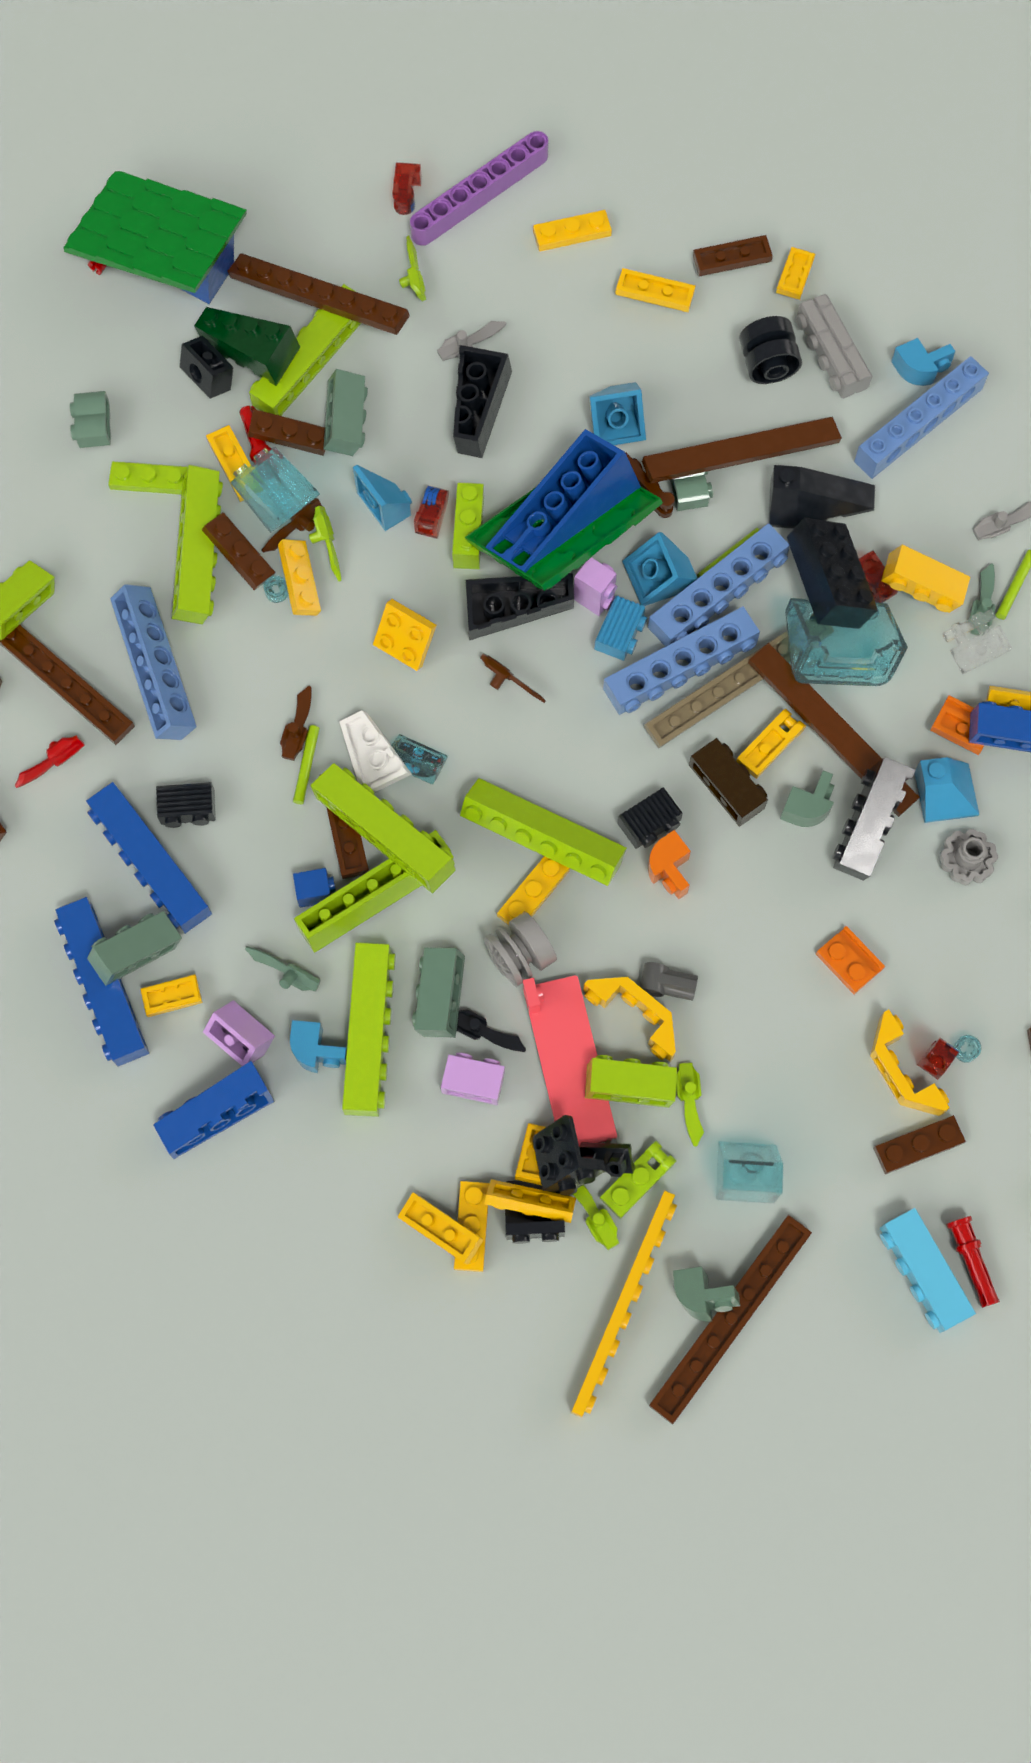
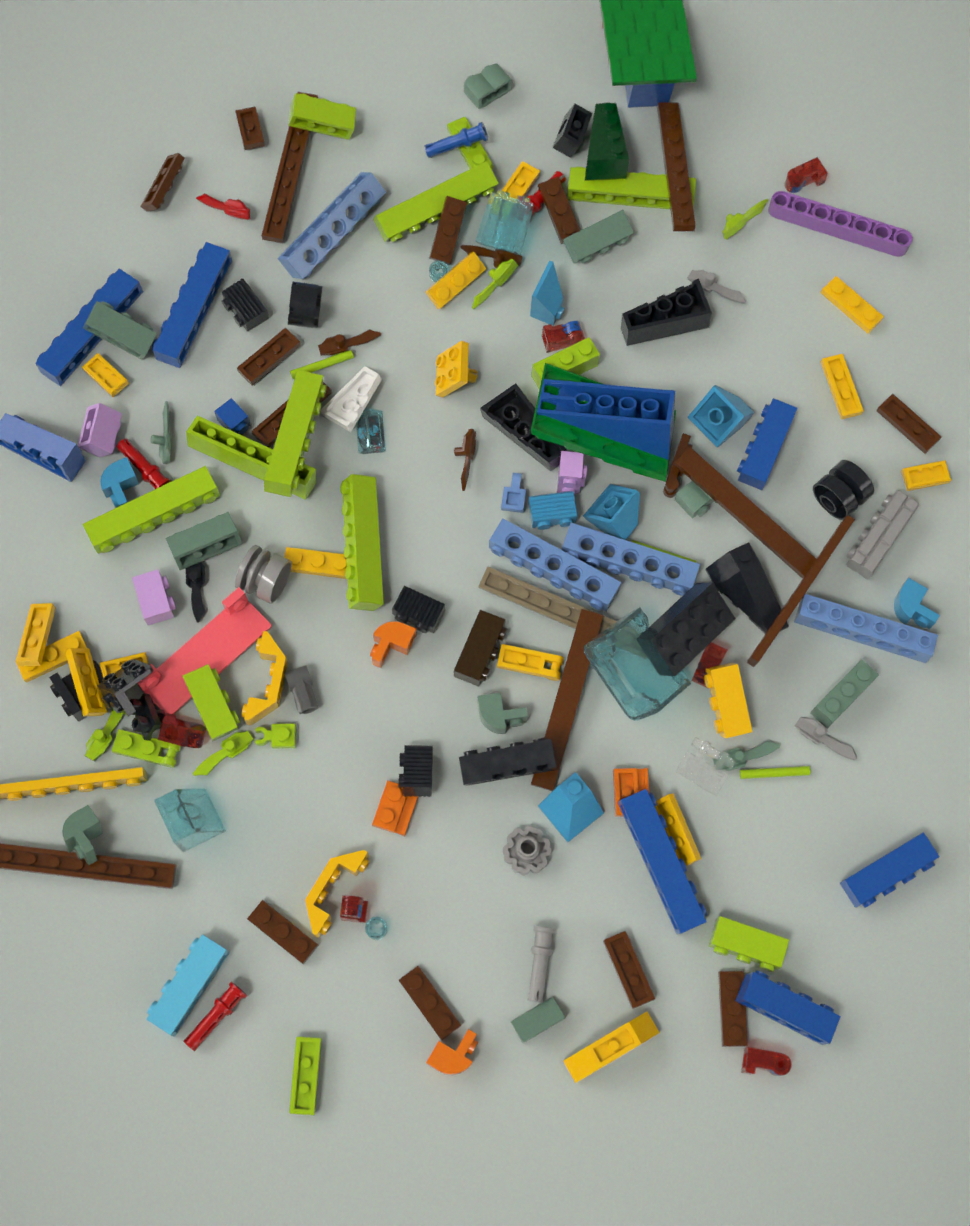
camera: 55 degrees right, 0 degrees up
(143, 473) = (465, 137): none -> blue pin
(231, 740) = (304, 305): none -> black brick
(263, 812) = (268, 356): none -> reddish brown plate
(321, 1008) = (149, 472): none -> red pin
(581, 658) = (513, 496): none -> medium blue plate
(645, 1130) = (181, 732): none -> clear red leg
(674, 391) = (767, 444): none -> blue brick
(704, 1033) = (280, 736): none -> lime plate
(827, 914) = (417, 770): none -> black brick
(852, 450) = (800, 591): none -> reddish brown tile
(976, 474) = (844, 694): none -> sand green brick

